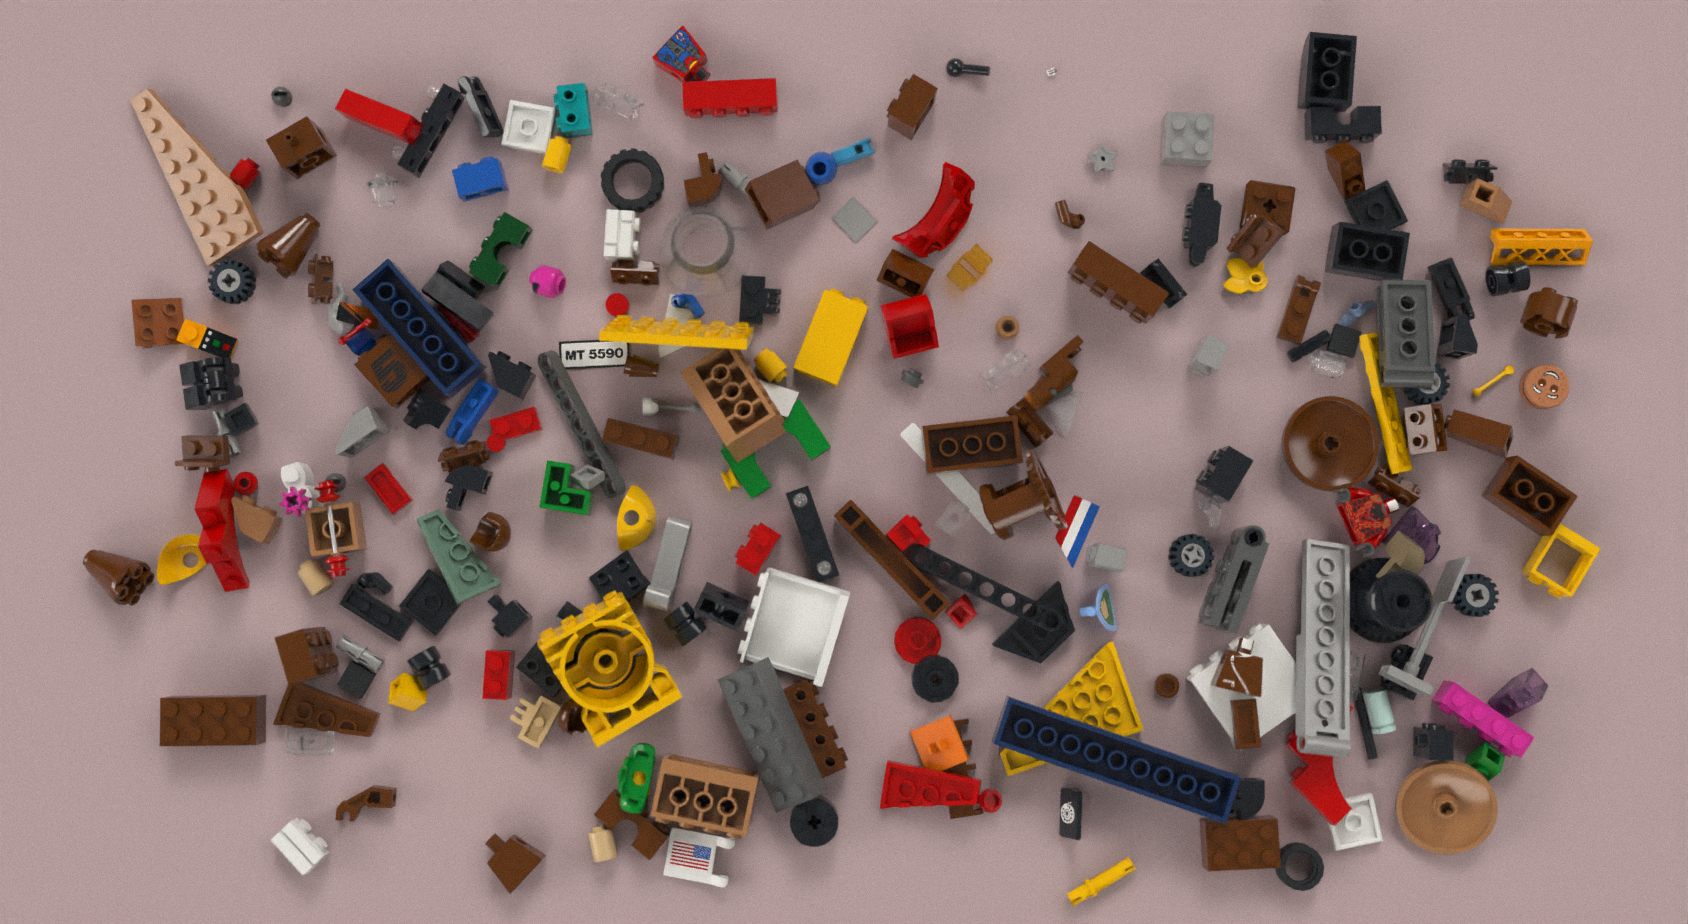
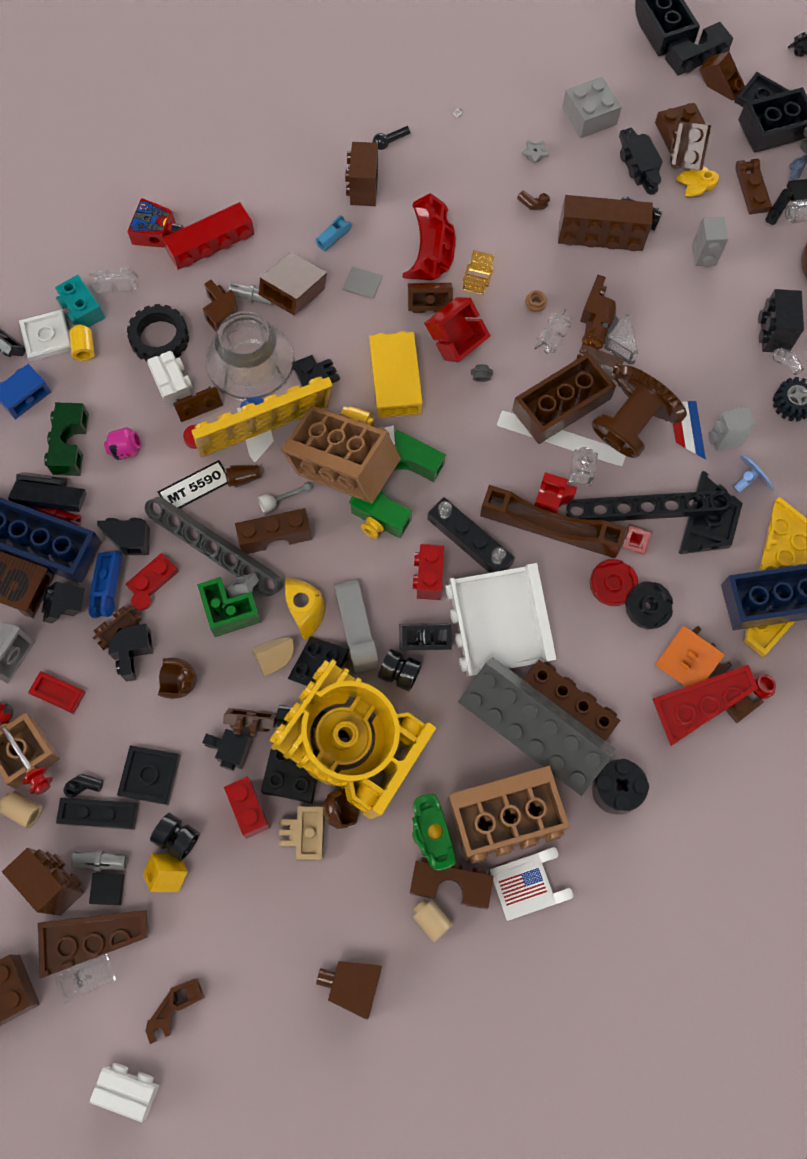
camera: 30 degrees left, 15 degrees down
(458, 563) = (152, 722): sand green wing -> none
(538, 599) = (254, 720): none -> reddish brown hinge
(585, 551) = (273, 654): none -> tan brick
(821, 168) = (314, 250): blue piece -> none

